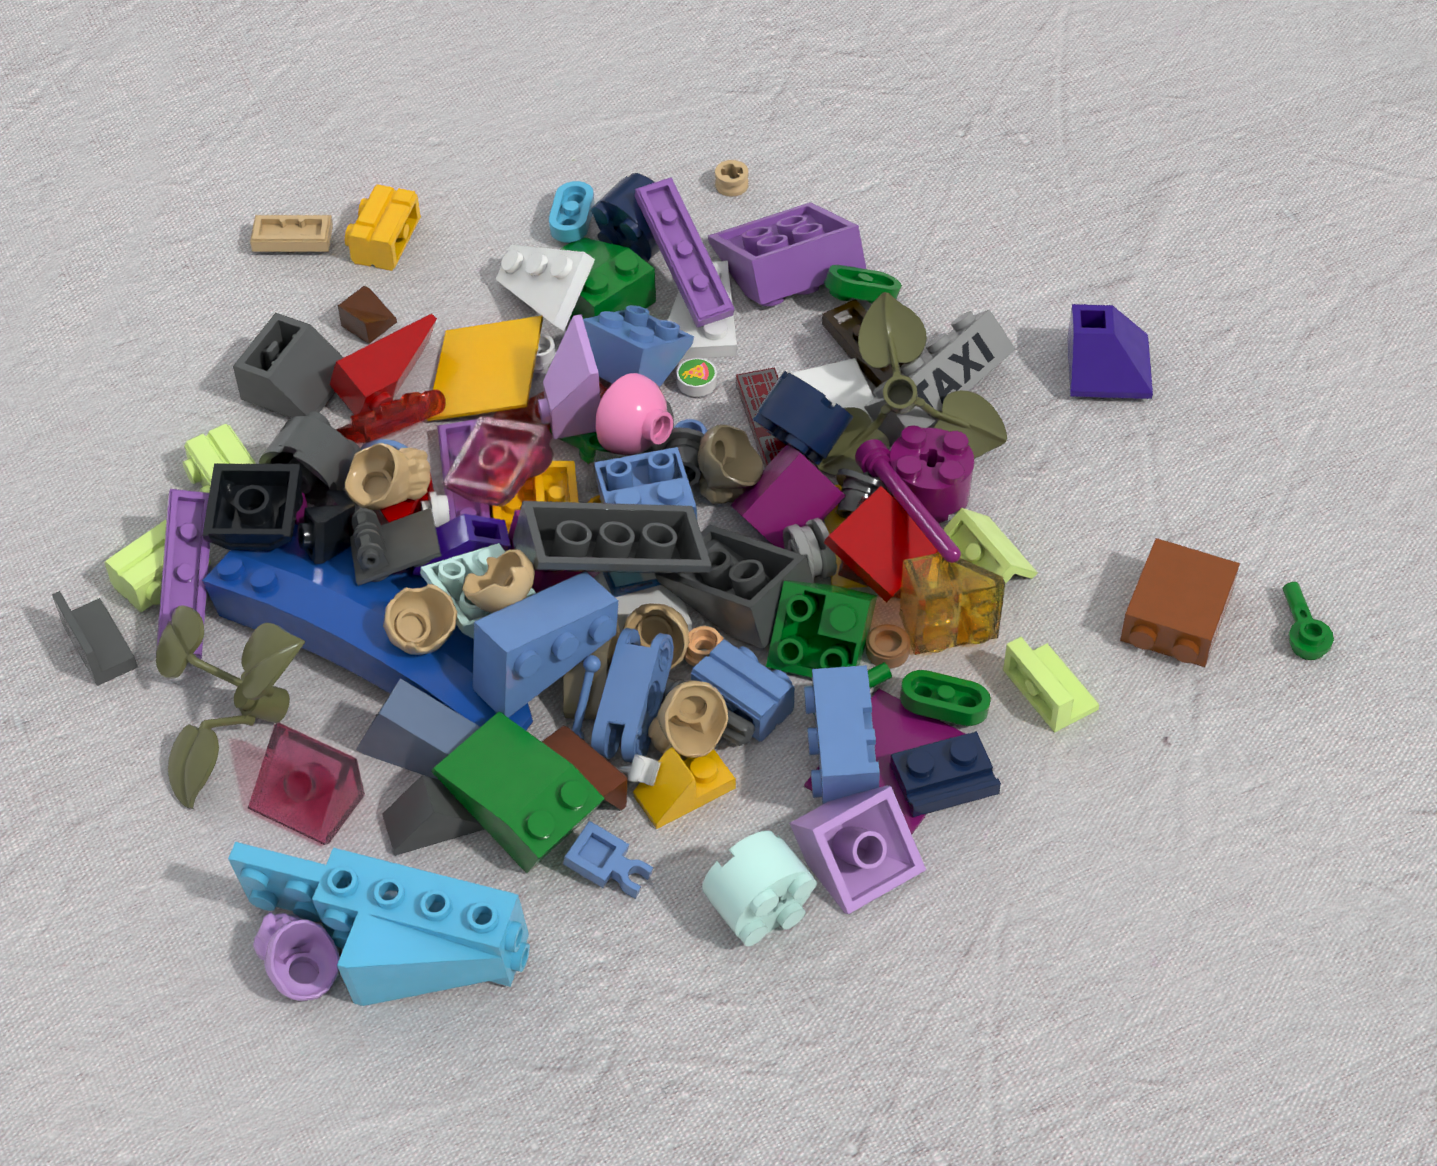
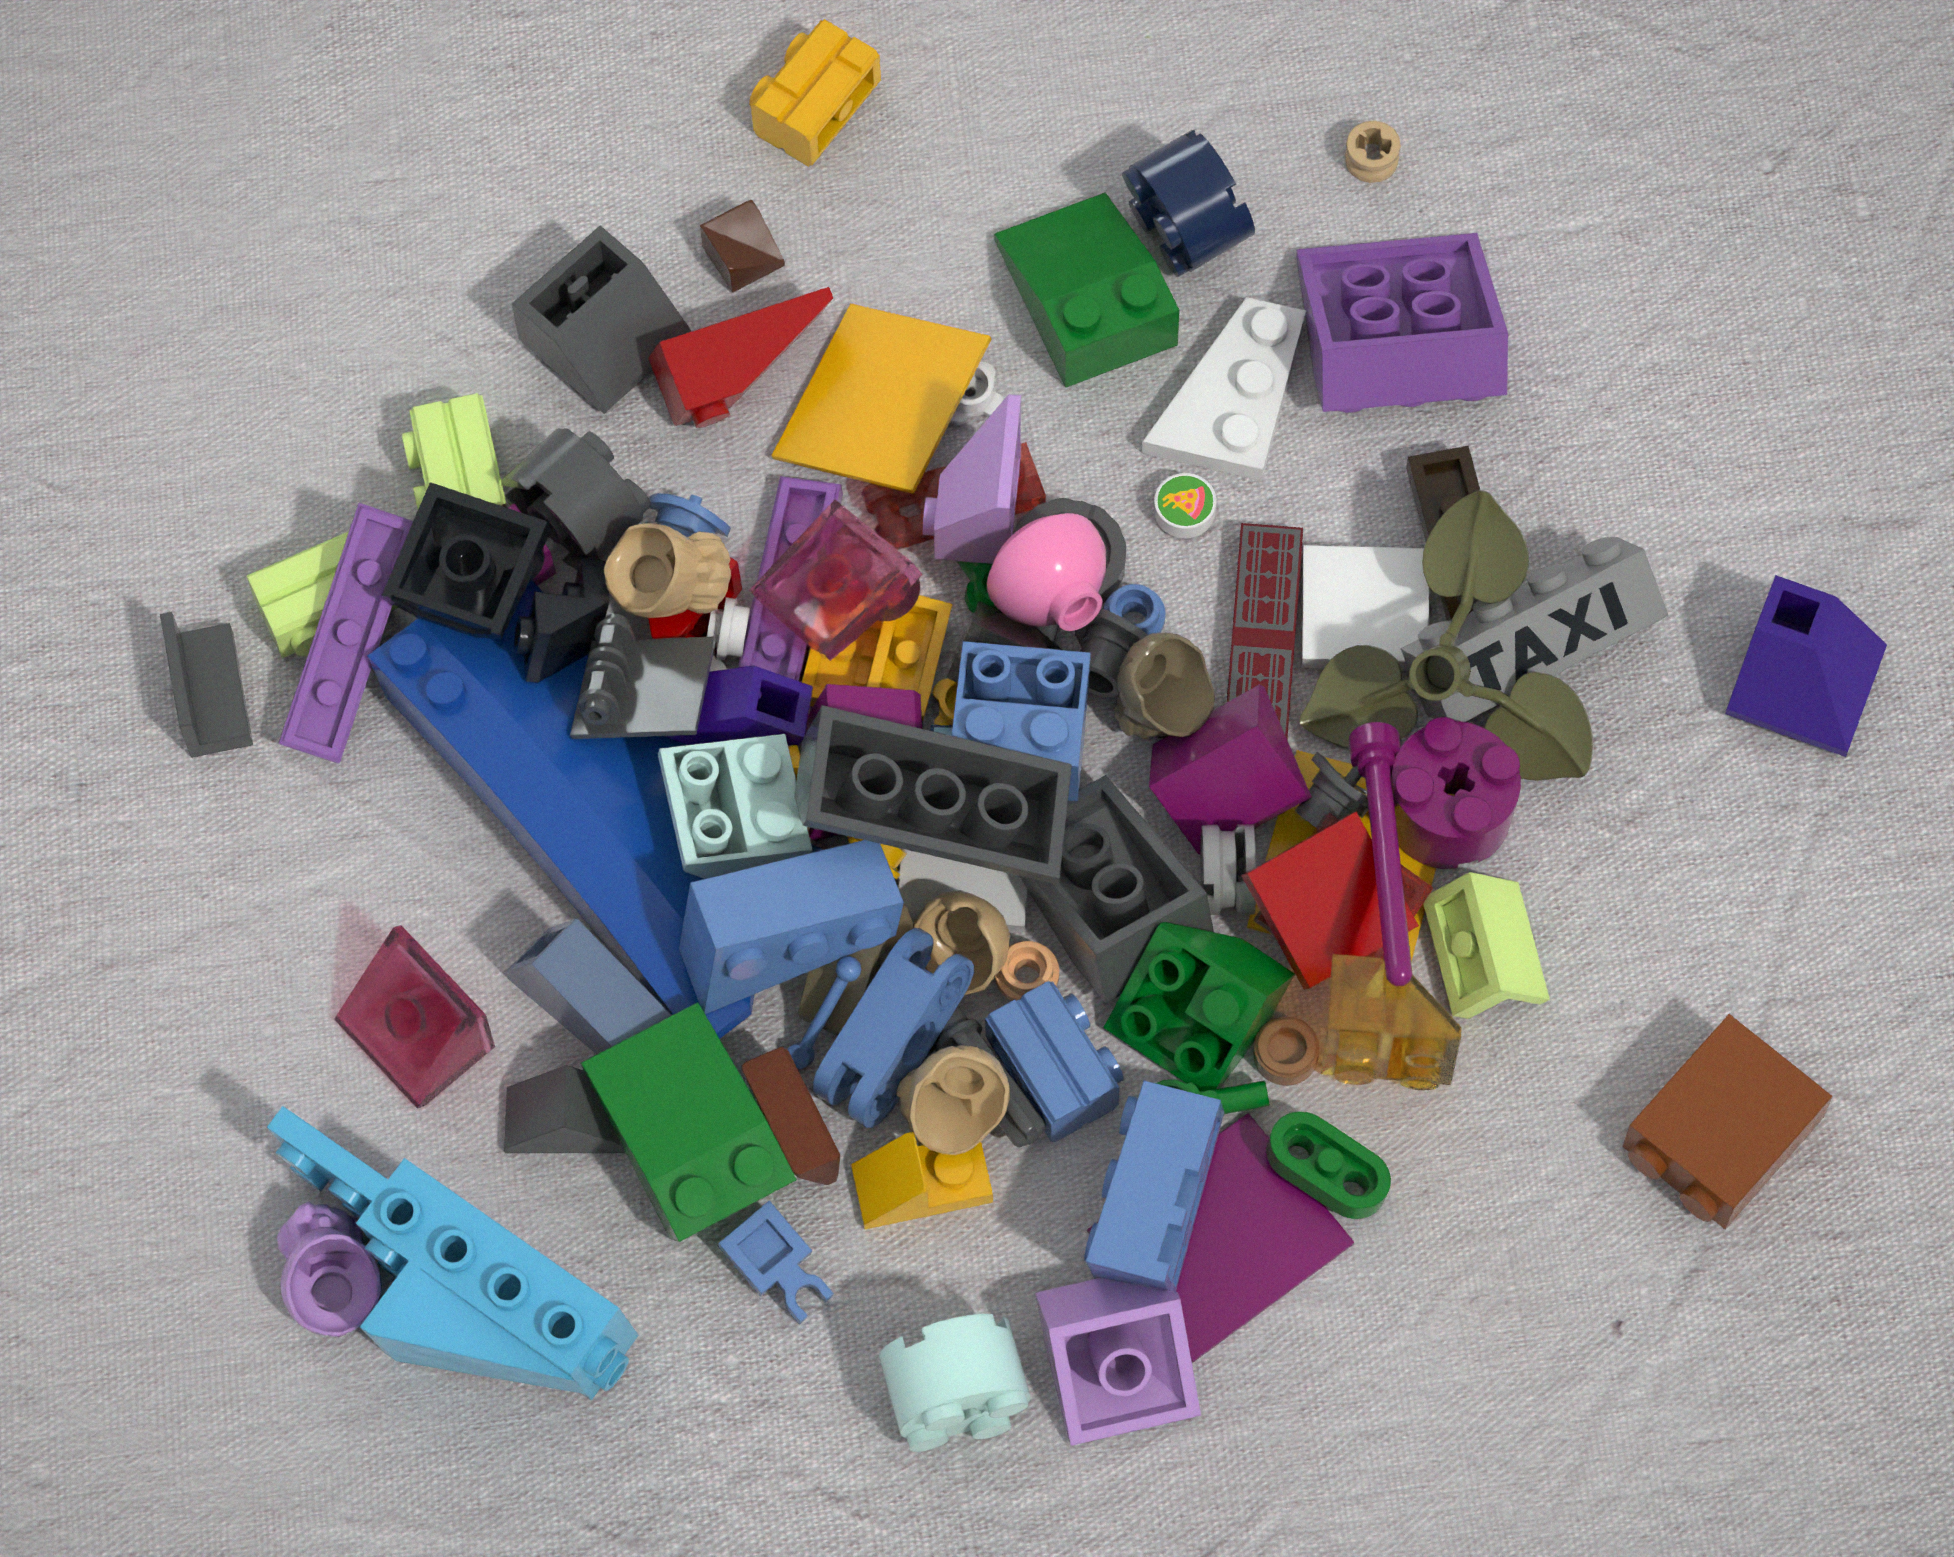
camera: 20 degrees right, 15 degrees up
(263, 661) = (395, 859): olive plant -> none
(291, 233) = (678, 59): tan plate -> none
(394, 416) = (714, 455): clear red plate -> none
(420, 619) = (629, 836): tan hair -> none
(503, 584) = (751, 826): tan hair -> none
(546, 279) = (1012, 279): white wing -> none
(571, 211) = (1102, 151): medium azure plate -> none
(635, 343) = (1102, 435): medium blue slope -> none
(642, 770) = (864, 1144): white hand -> none
(684, 252) = (1230, 298): medium lavender tile -> none
(802, 417) = (1292, 653): dark blue brick -> none
(860, 283) = (1488, 423): green plate -> none
(945, 774) = (1282, 1281): dark blue plate -> none
(1047, 684) = (1488, 1188): yellowish green panel -> none
(1307, 636) = (1894, 1234): green plate -> none

